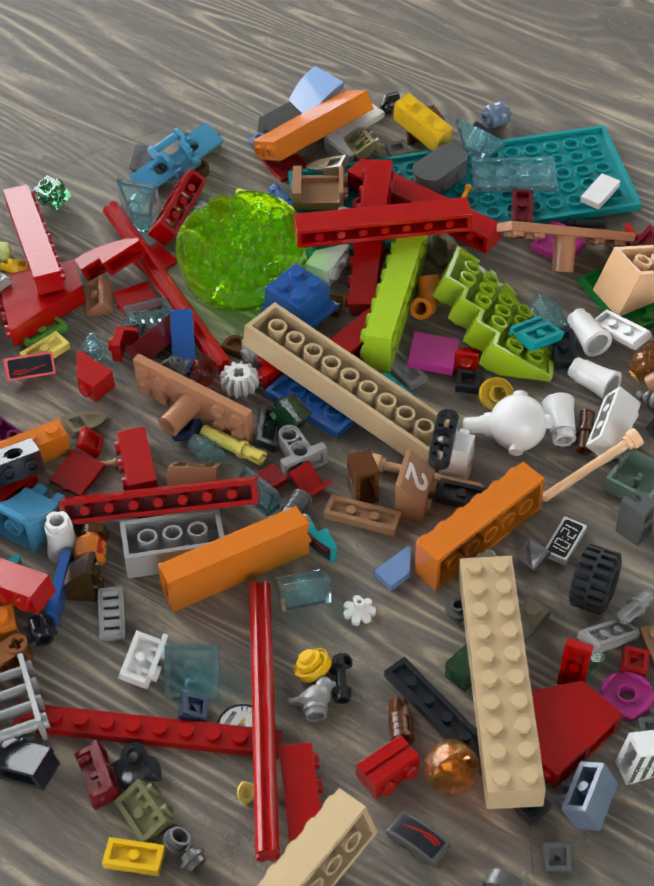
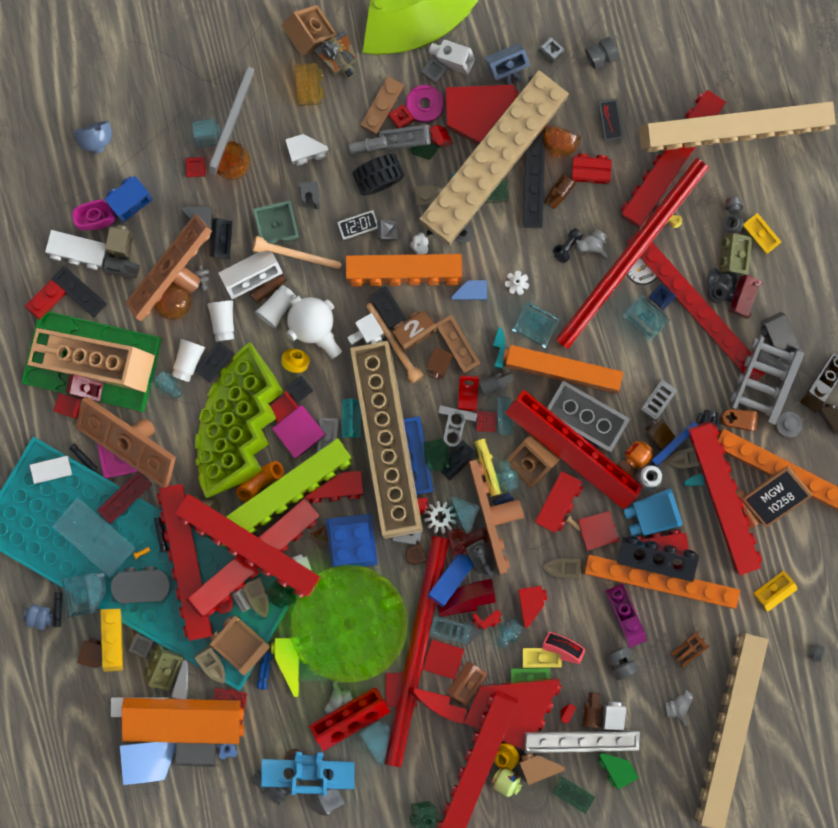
camera: 140 degrees left, 35 degrees up
(90, 441) = (573, 546): red tile -> none
(142, 660) = (664, 350): white bracket -> none
(222, 381) = (465, 512): none -> clear light blue slope
(312, 665) = (577, 264): yellow plate -> none
(387, 100) = (95, 709): black arm -> none
(445, 447) = (387, 319): black beam -> none
(536, 333) = (227, 380): teal plate -> none
(549, 310) = (191, 401): clear light blue slope -> none
(589, 305) = (168, 384): none -> clear light blue piece
(623, 330) = (167, 339): white tile -> none

